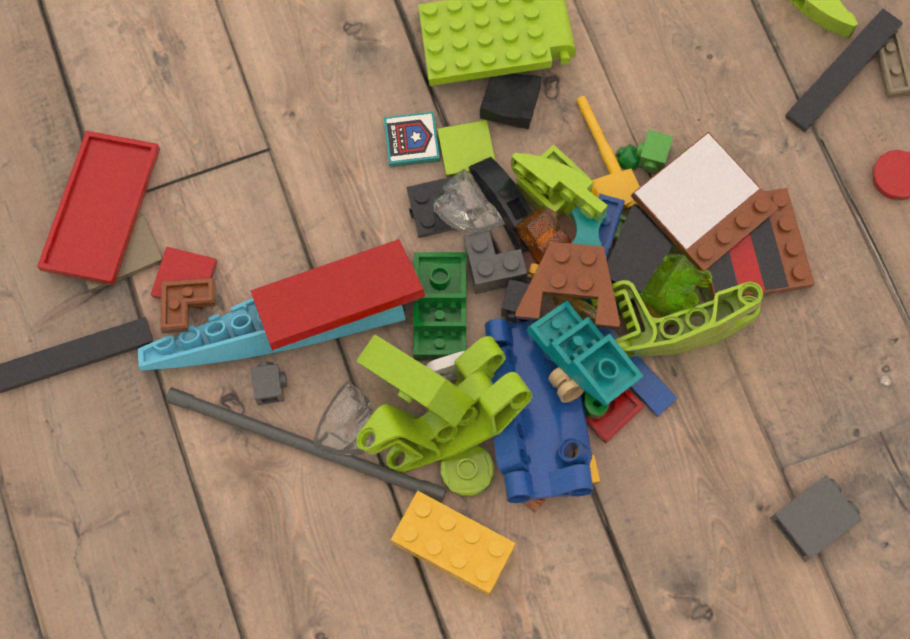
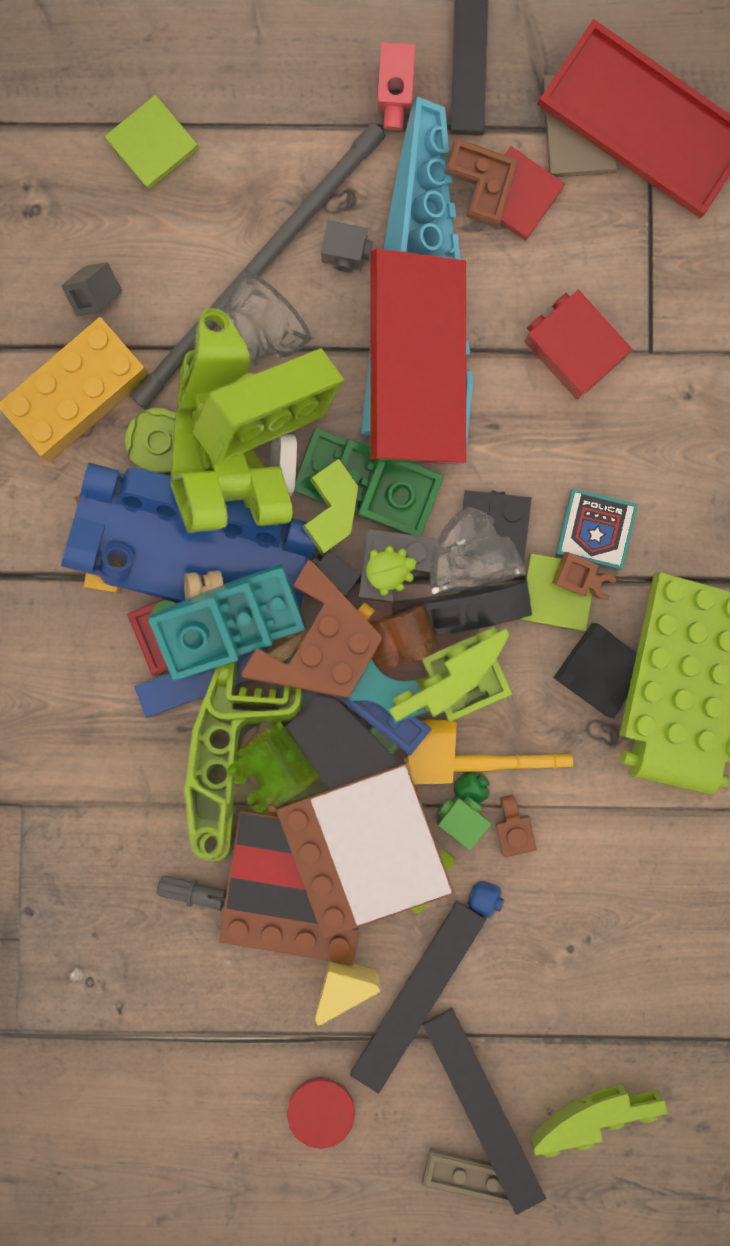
camera: 110 degrees right, 15 degrees up
(124, 389) = (395, 74): none -> coral torso
(235, 562) = (151, 142): none -> lime tile
(283, 196) = (576, 343): none -> red brick
(368, 562) = (91, 288): none -> dark grey panel
(450, 133) = (579, 576): none -> dark orange plate
(478, 311) = (340, 495): none -> lime tile
(500, 255) = (389, 569): none -> lime piece
(644, 117) = (514, 832): none -> dark orange plate
(701, 121) = (485, 899): none -> blue piece
(788, 318) = (191, 892): none -> dark grey axle
(789, 140) = (417, 997): none -> black tile
(808, 184) = (344, 988): none -> light yellow slope

